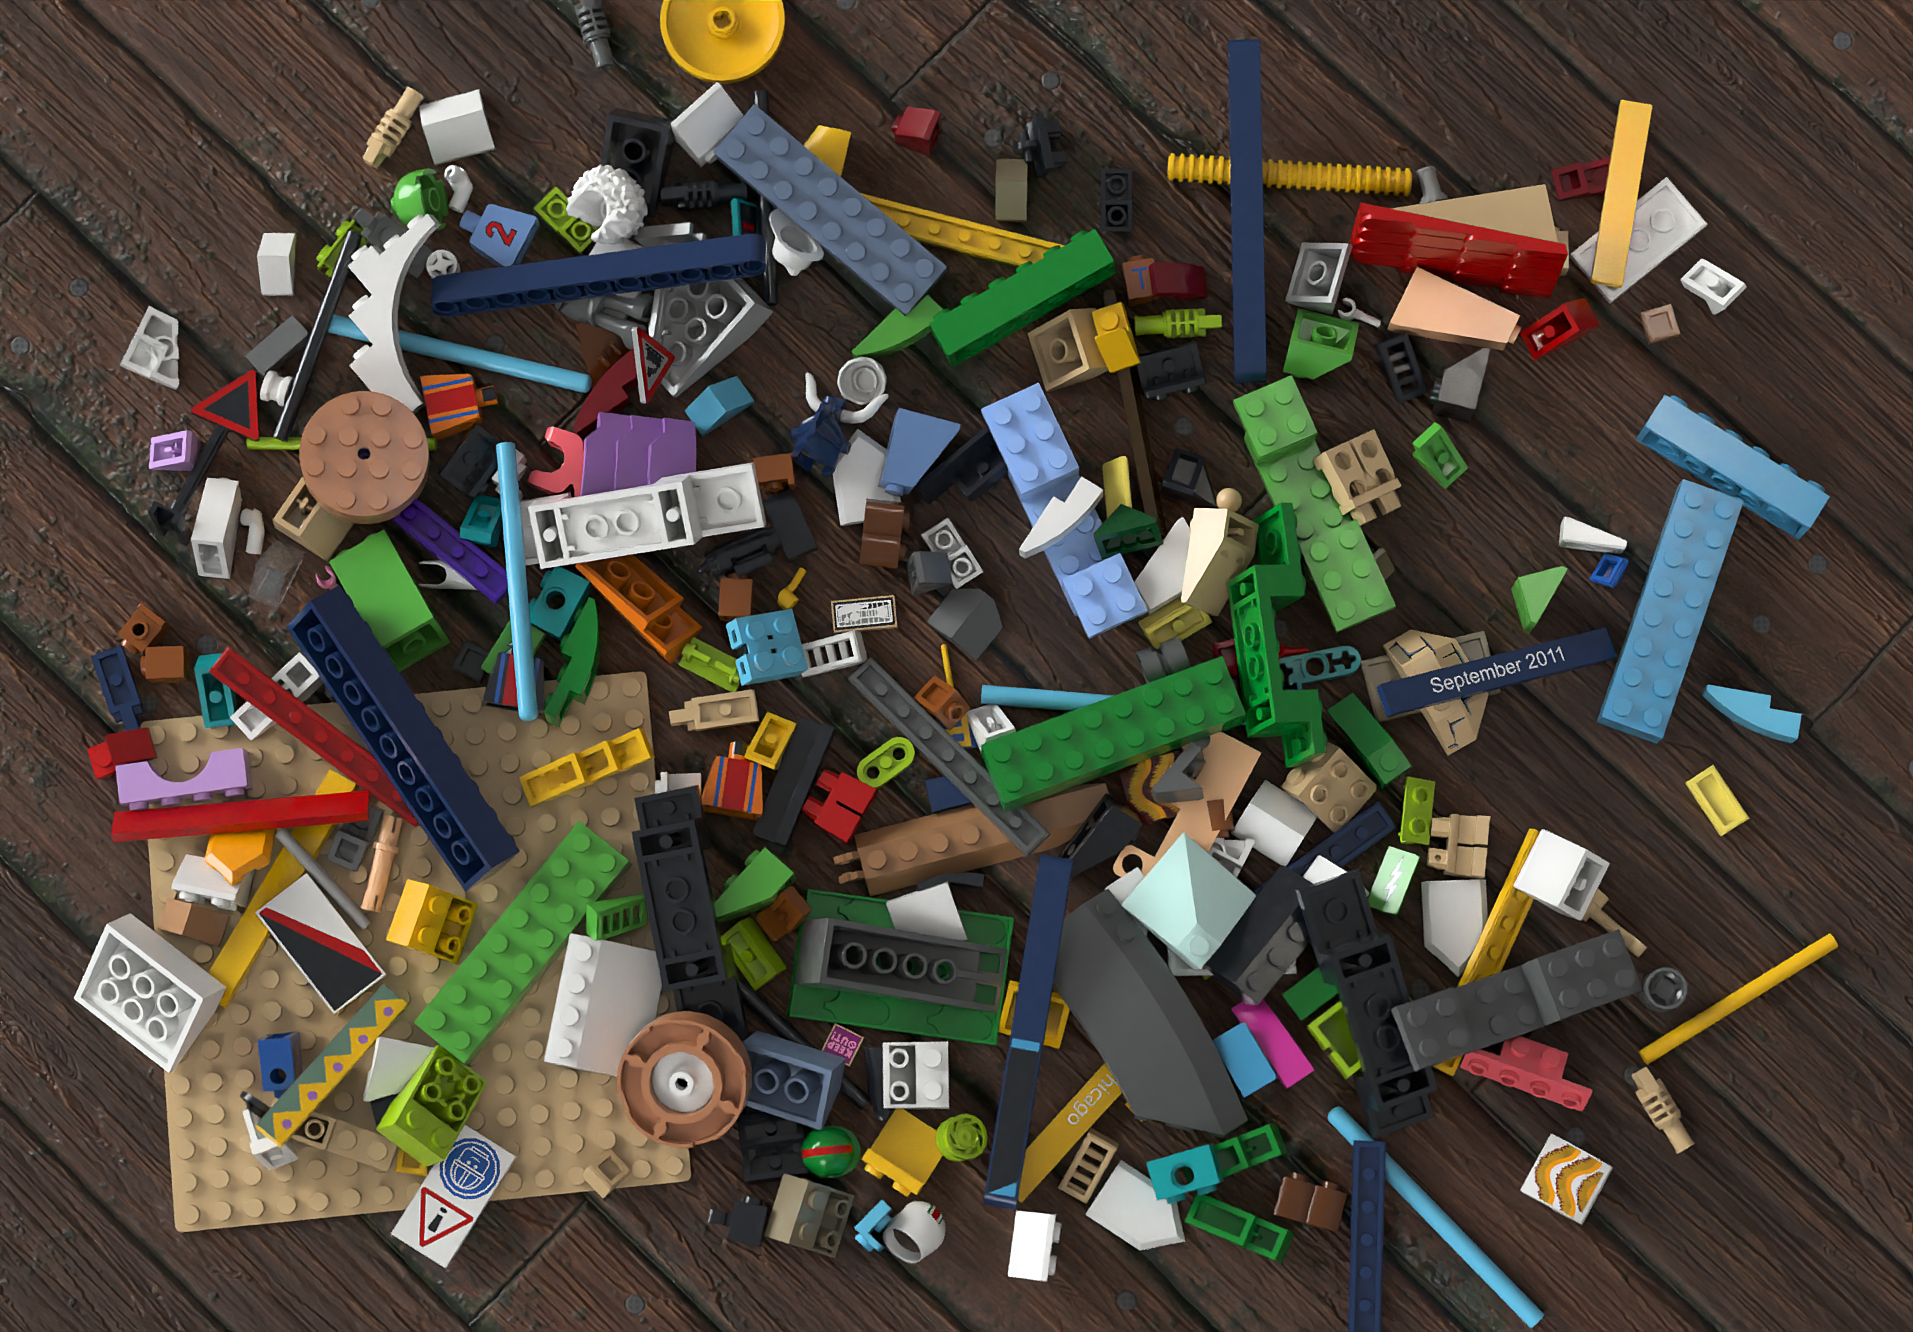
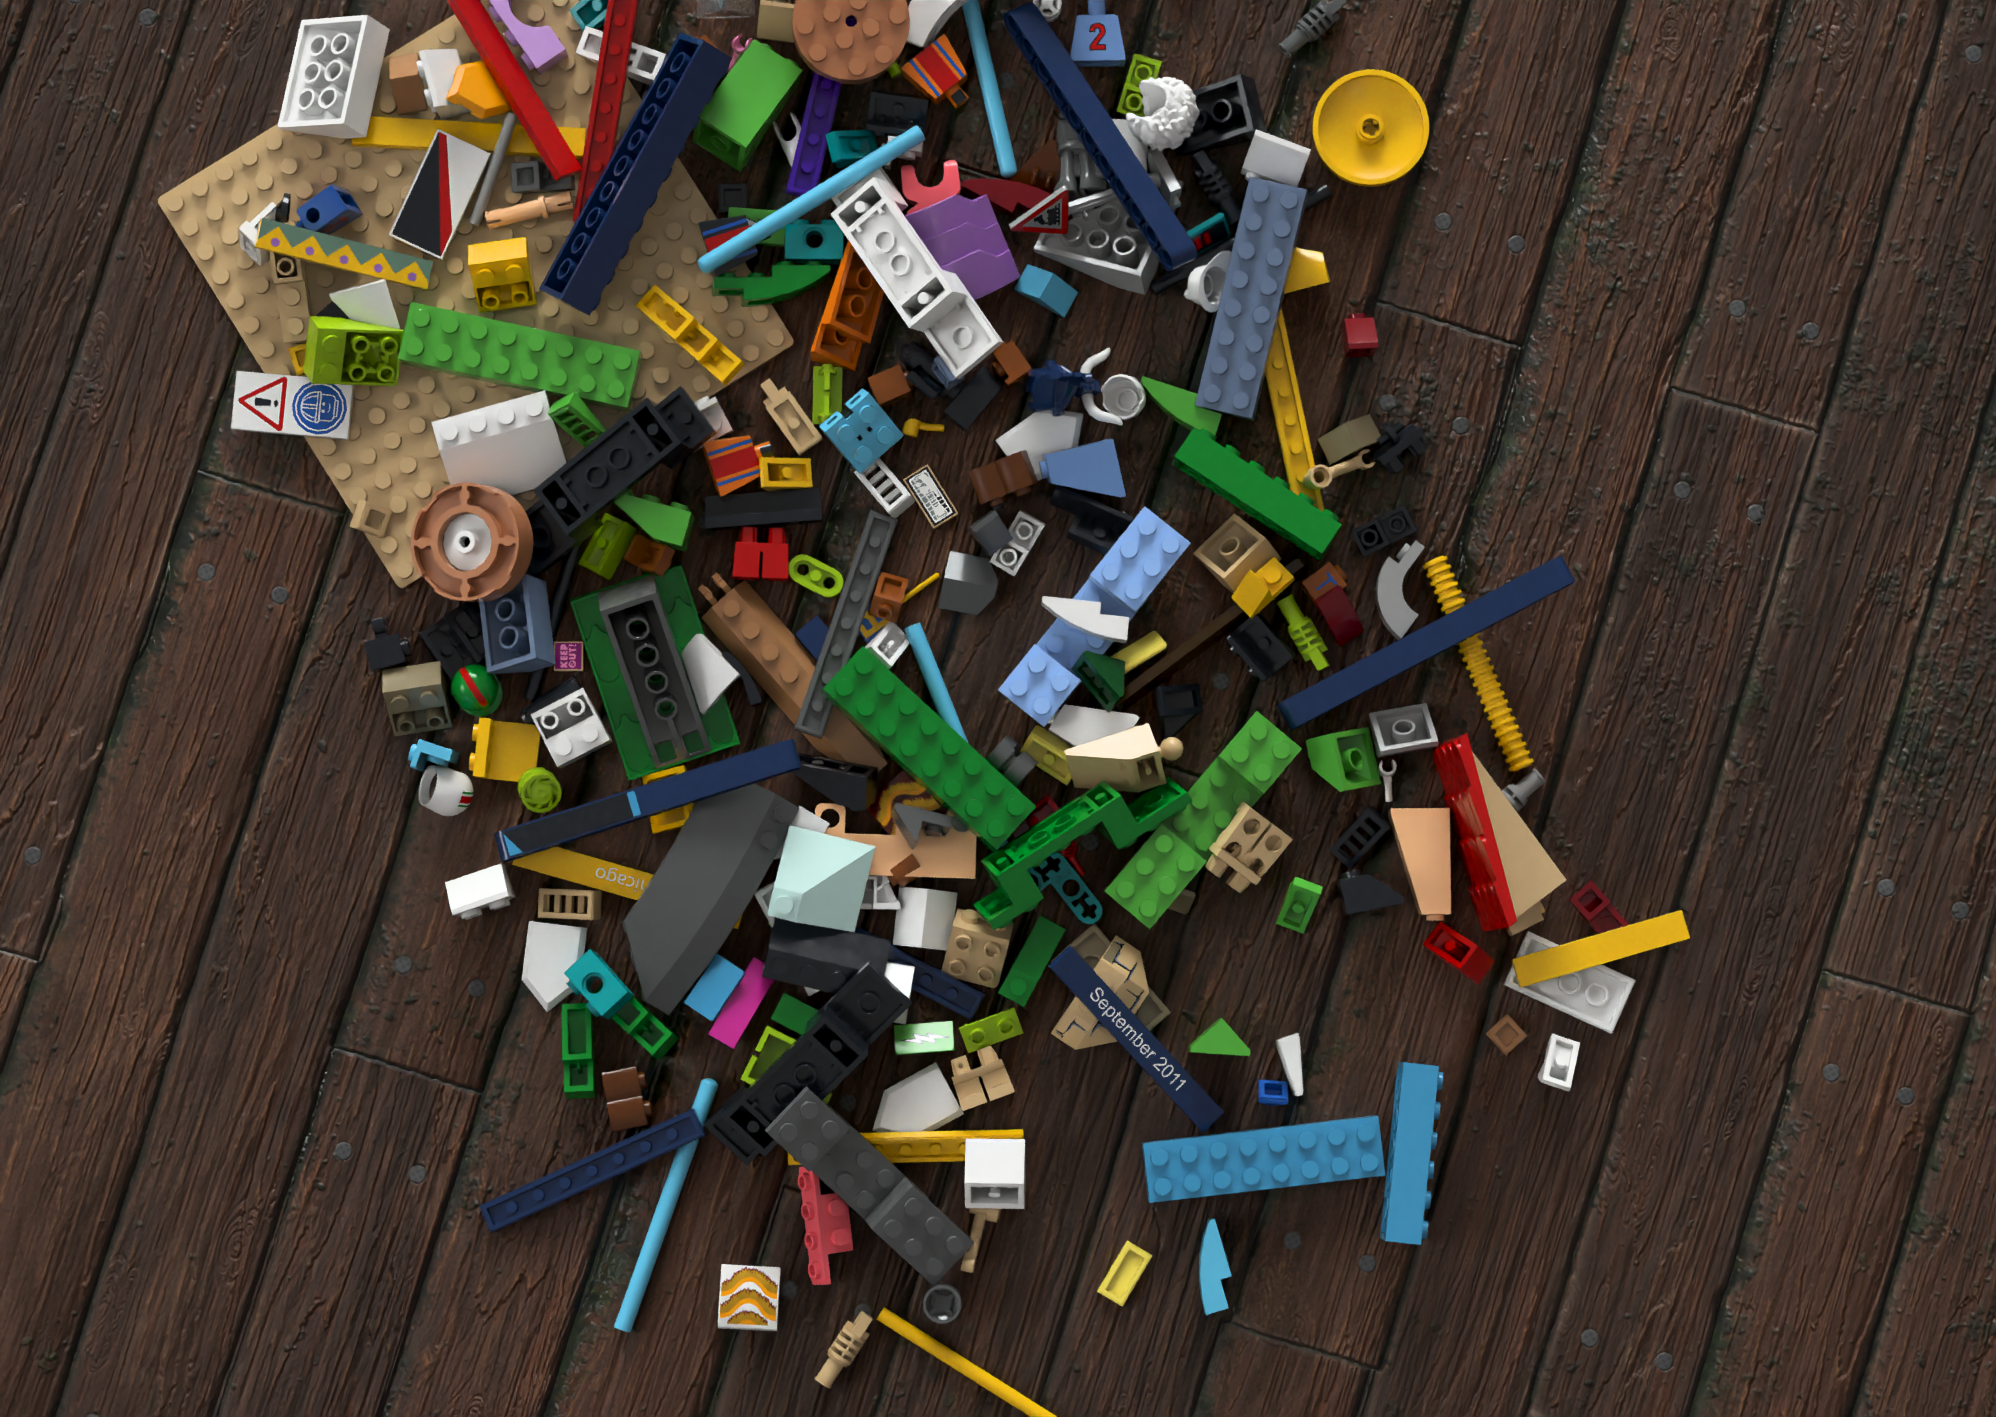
camera: 55 degrees right, 5 degrees up
(753, 537) = (944, 374): none -> sand blue slope
(1035, 229) = (1325, 475): none -> tan brick
(1179, 224) = (1388, 591): none -> light grey arch

